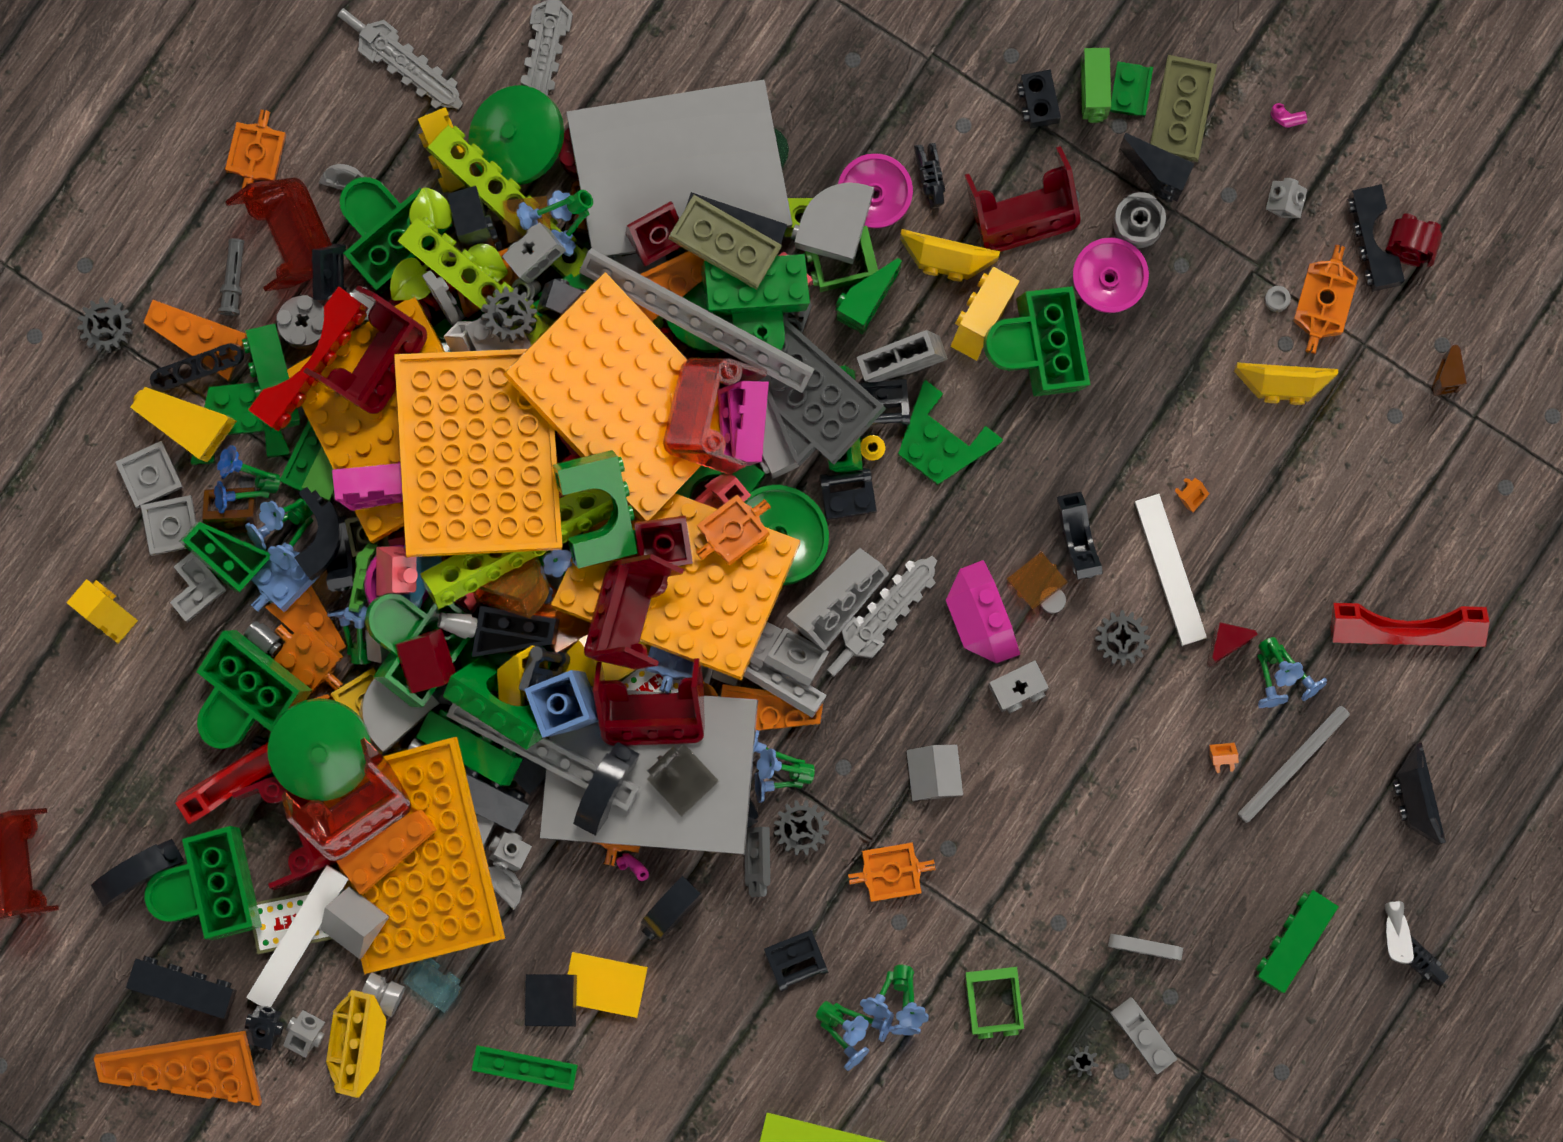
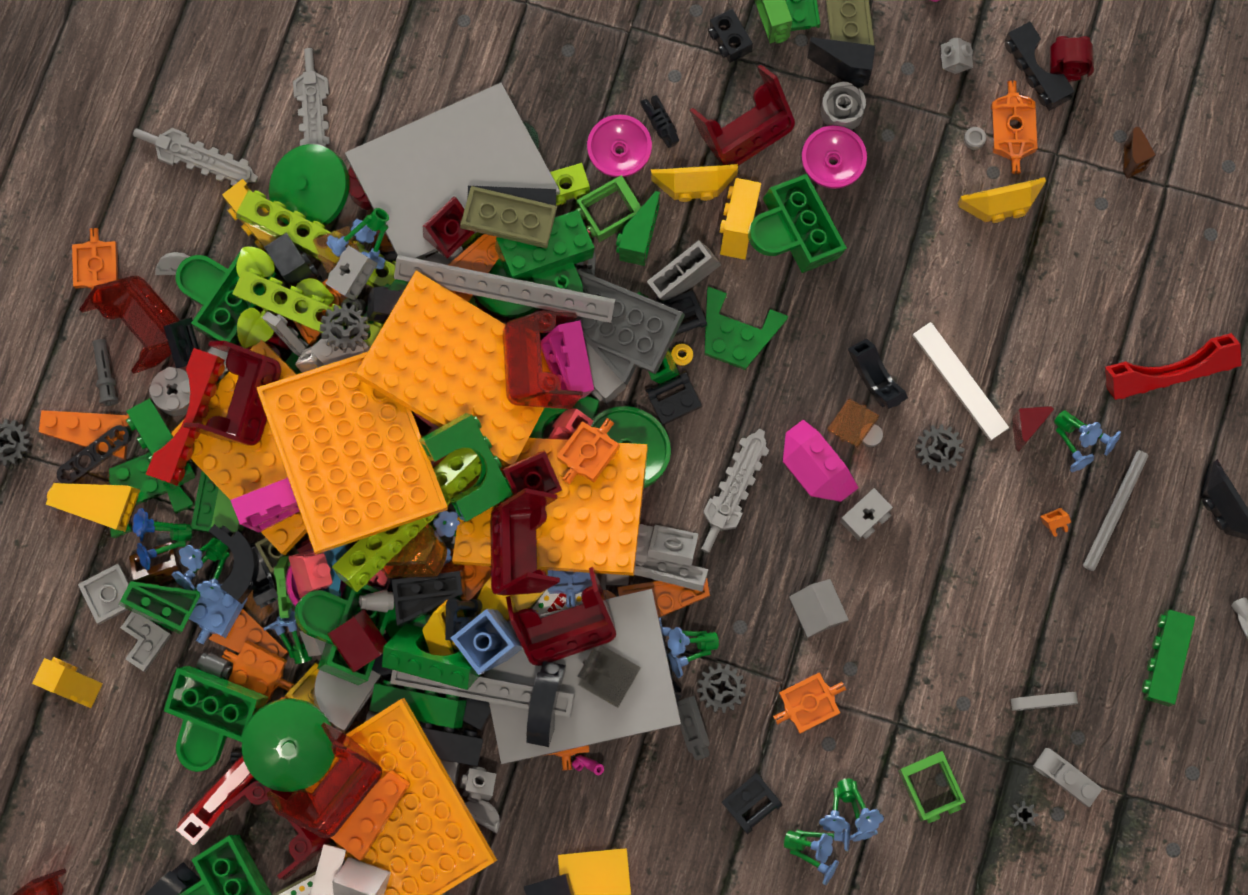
camera: 15 degrees left, 5 degrees down
(149, 474) = (78, 556): light grey plate -> none
(670, 909) = (632, 791): black brick -> none
(834, 221) = (594, 178): light grey brick -> none
(838, 598) = (692, 486): light grey wedge -> none
(1193, 494) = (959, 313): orange tile -> none

